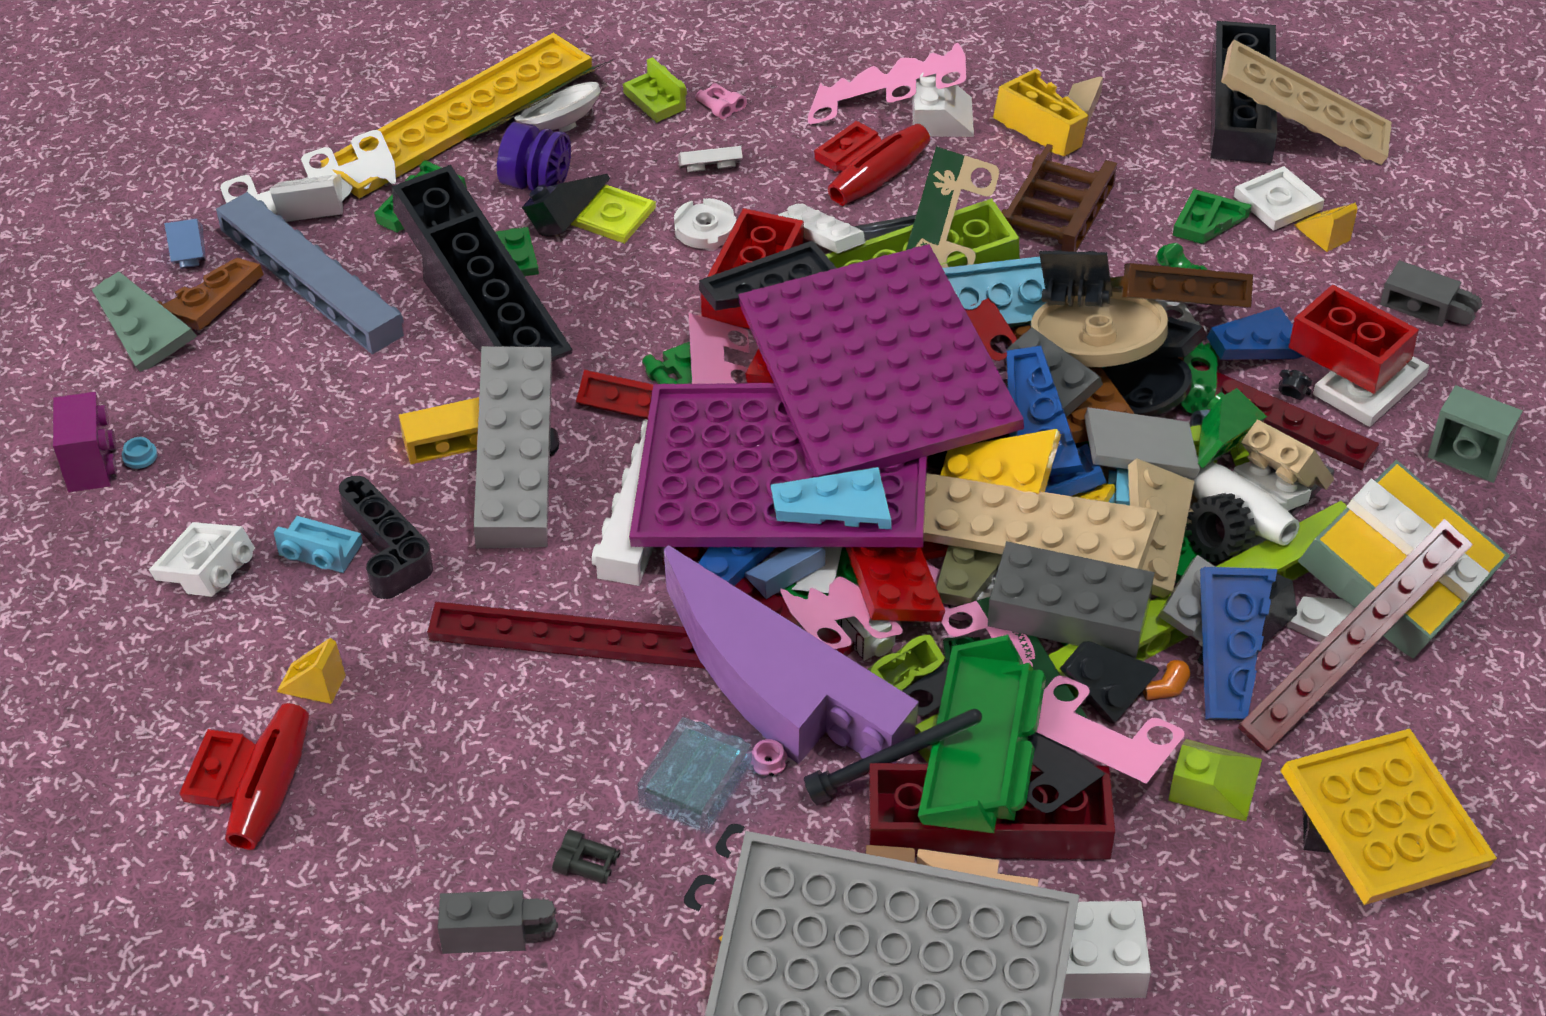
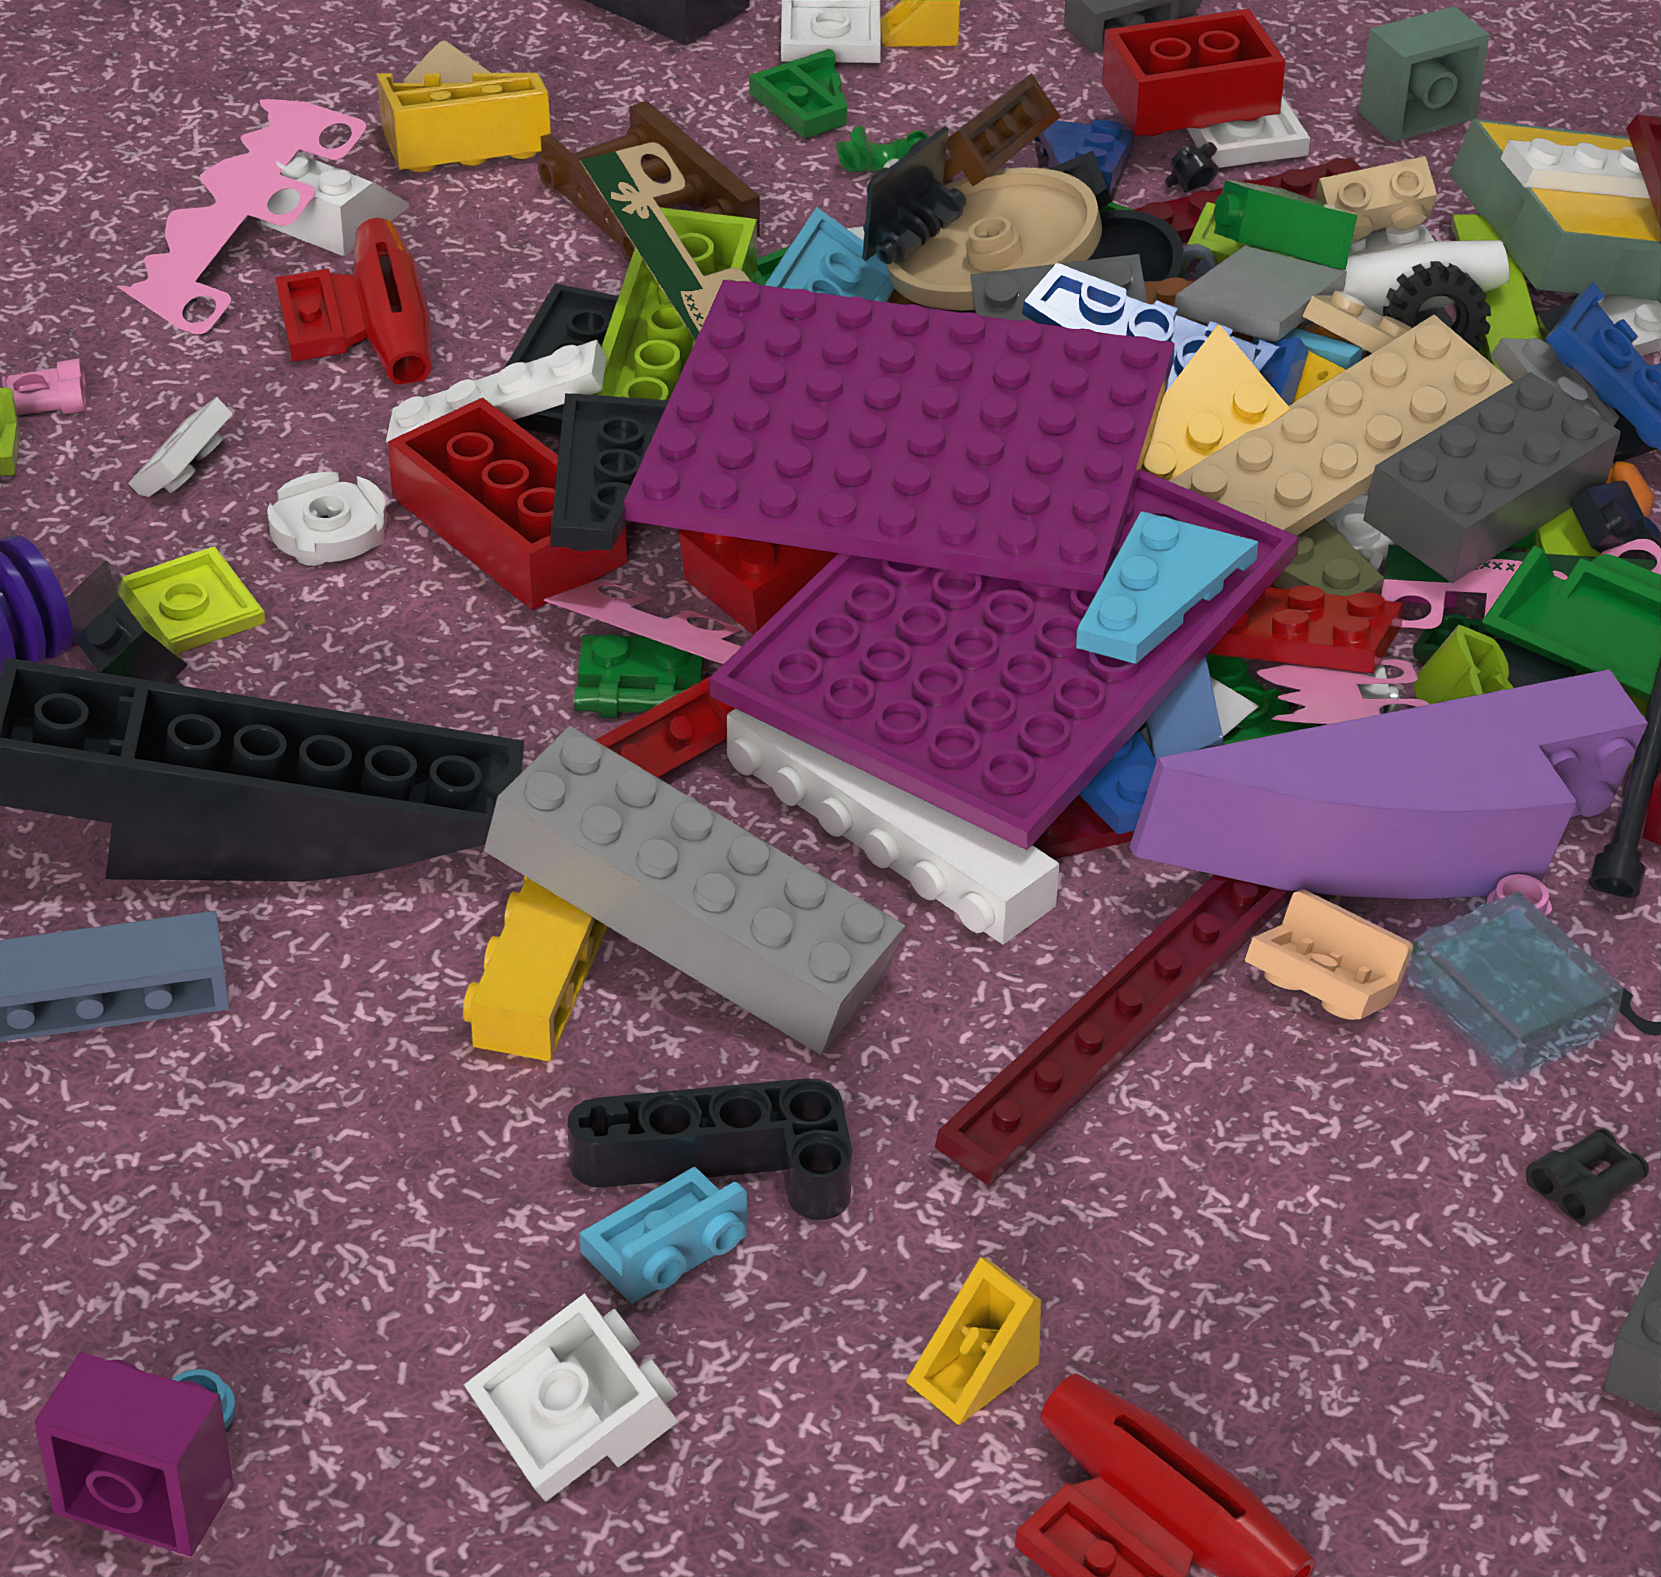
camera: 60 degrees left, 5 degrees down
(659, 696) = (1332, 957): none -> light nougat bracket

